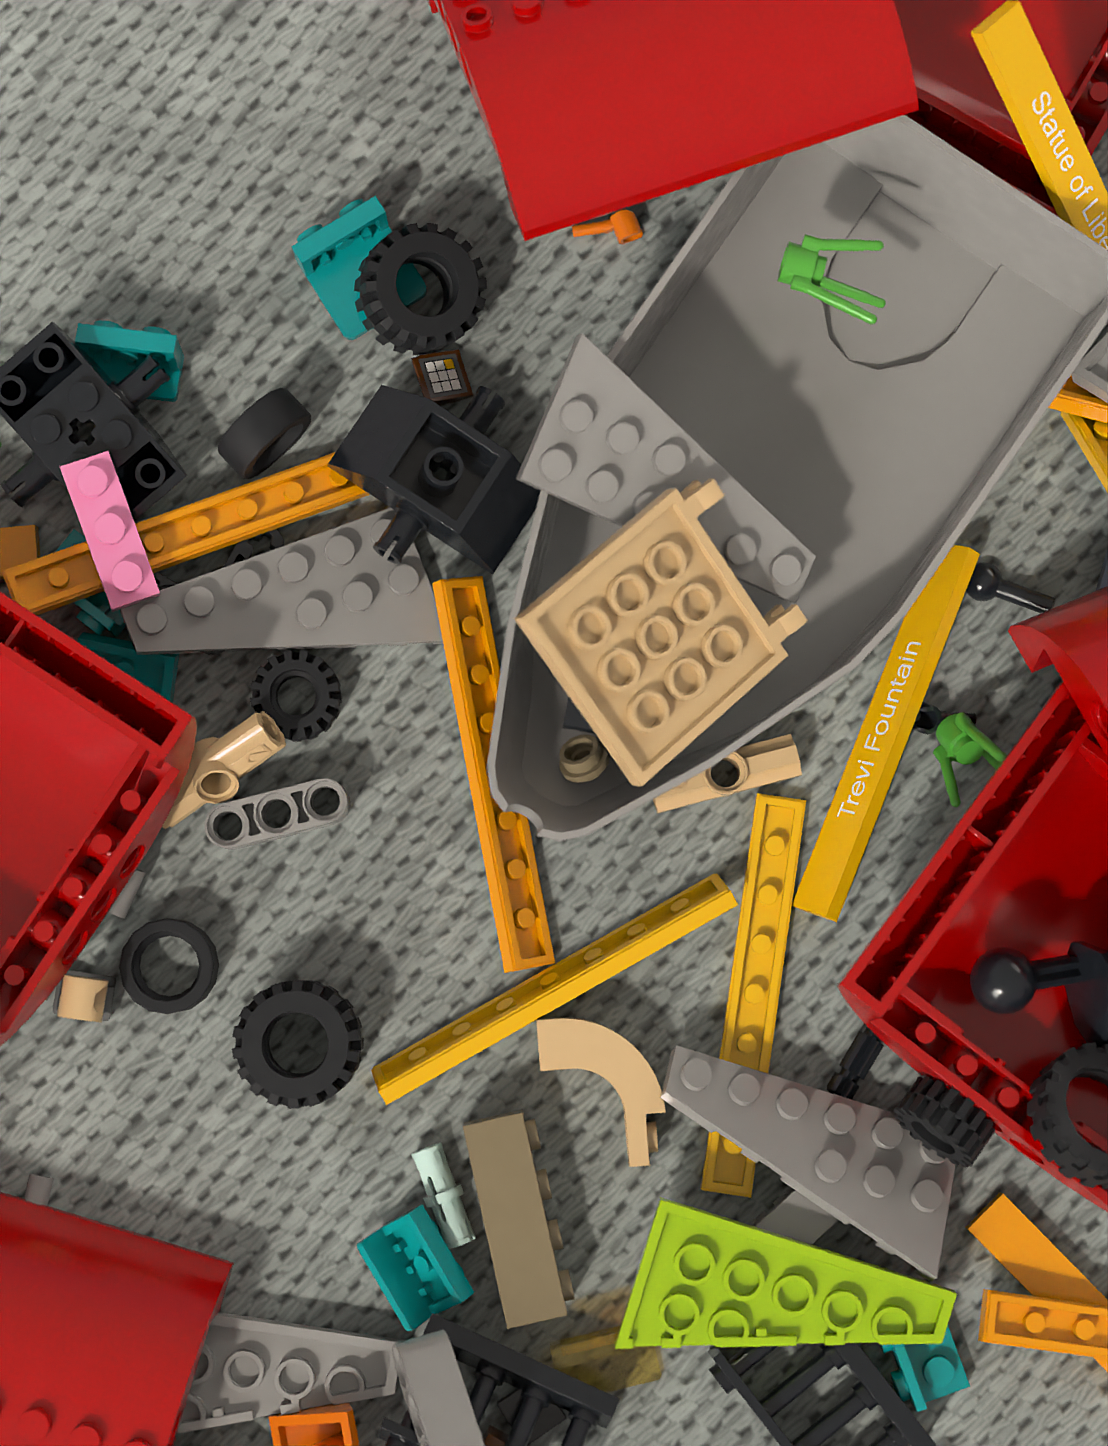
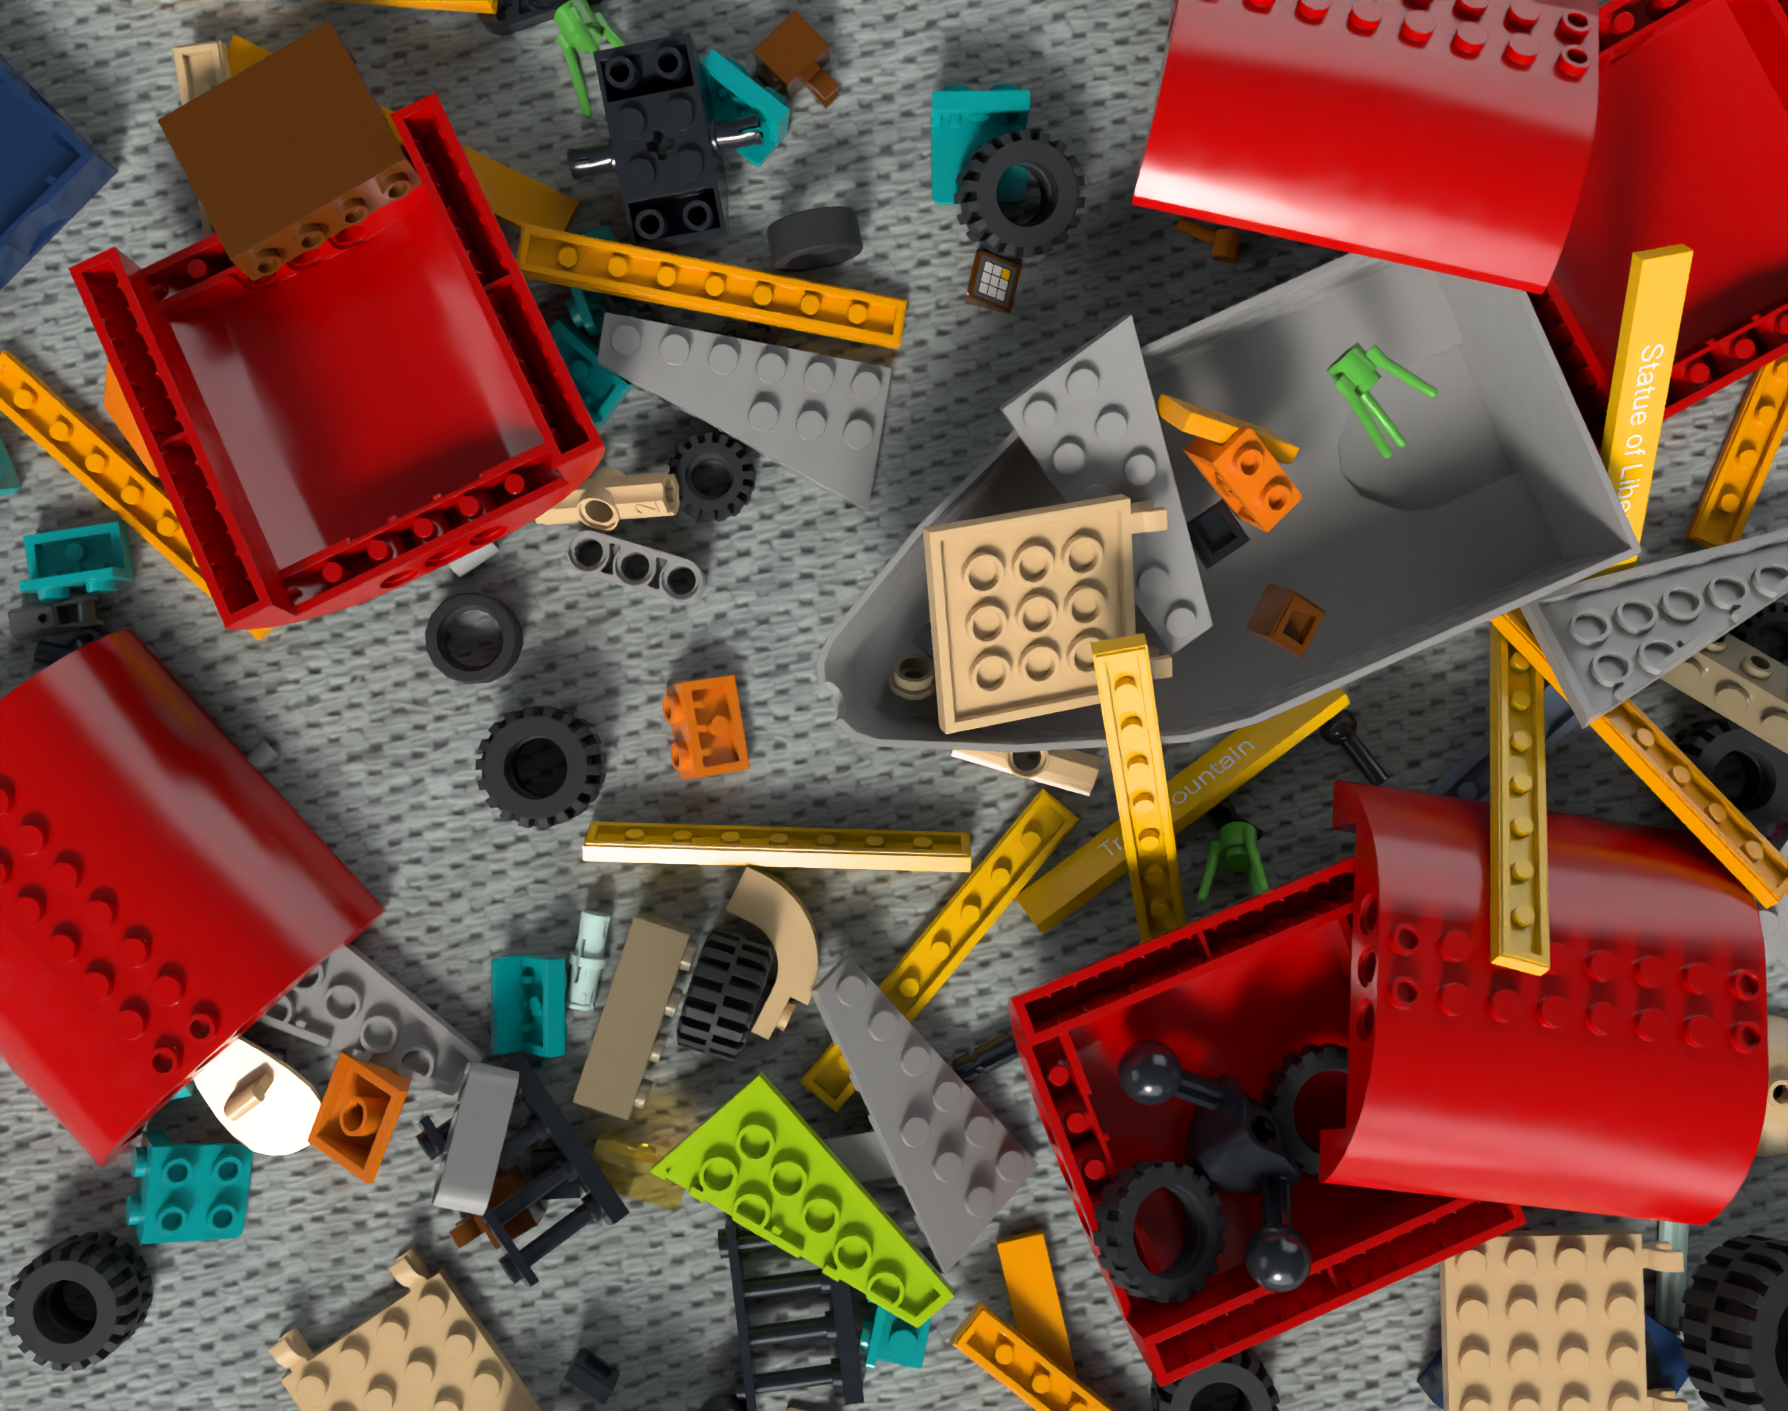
camera: 30 degrees right, 5 degrees up
(84, 996) = (388, 622): tan leg -> none
(110, 531) = (633, 243): bright pink plate -> none
(152, 289) = (795, 59): none -> reddish brown brick
(405, 441) = (927, 317): black slope -> none
(424, 920) = (706, 727): none -> orange bracket
(503, 836) = (810, 705): light orange tile -> none
(586, 1147) = (724, 994): none -> black tyre
(722, 382) = (1220, 427): none -> light orange tile
(765, 412) = (1246, 478): none -> orange bracket
(770, 477) = (1215, 534): none -> black tile
(835, 728) = (1139, 781): none -> yellow tile
(874, 511) = (1286, 619): none -> reddish brown slope
(944, 1121) = (1030, 1153): black tyre -> none

